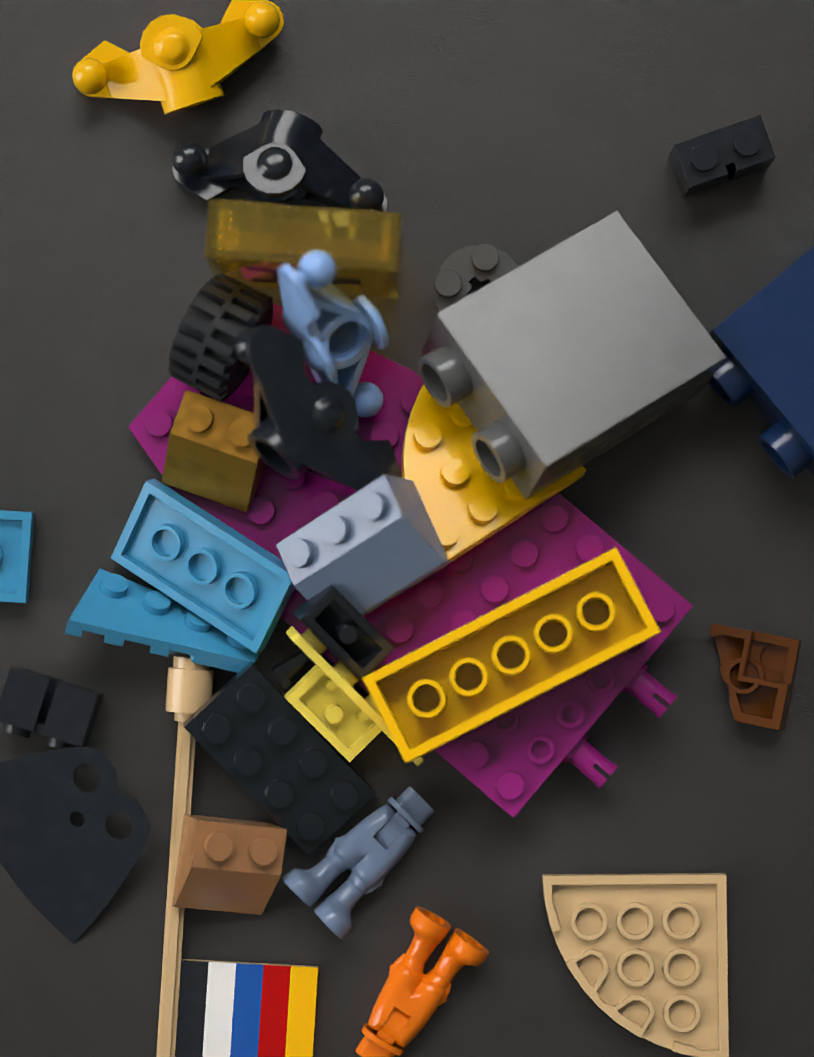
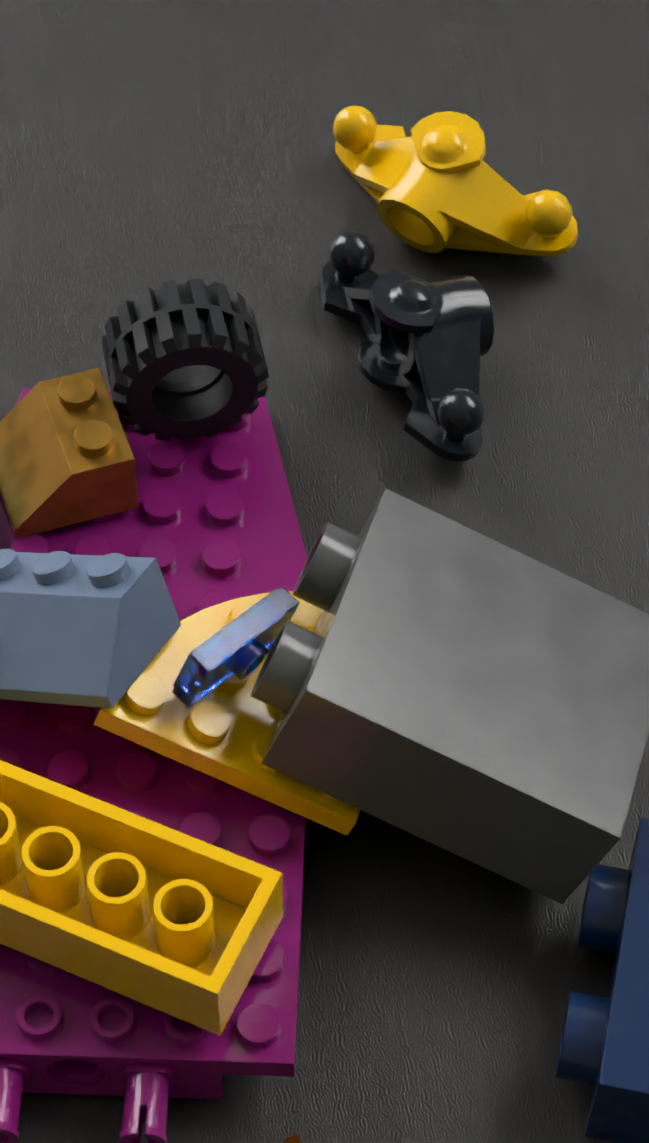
camera: 50 degrees right, 30 degrees down
(258, 238) = (349, 360): clear yellow tile -> none
(306, 423) = (154, 464): black piece -> none
(332, 328) = (276, 462): light blue piece -> none
(458, 465) = (235, 648): none -> clear blue plate

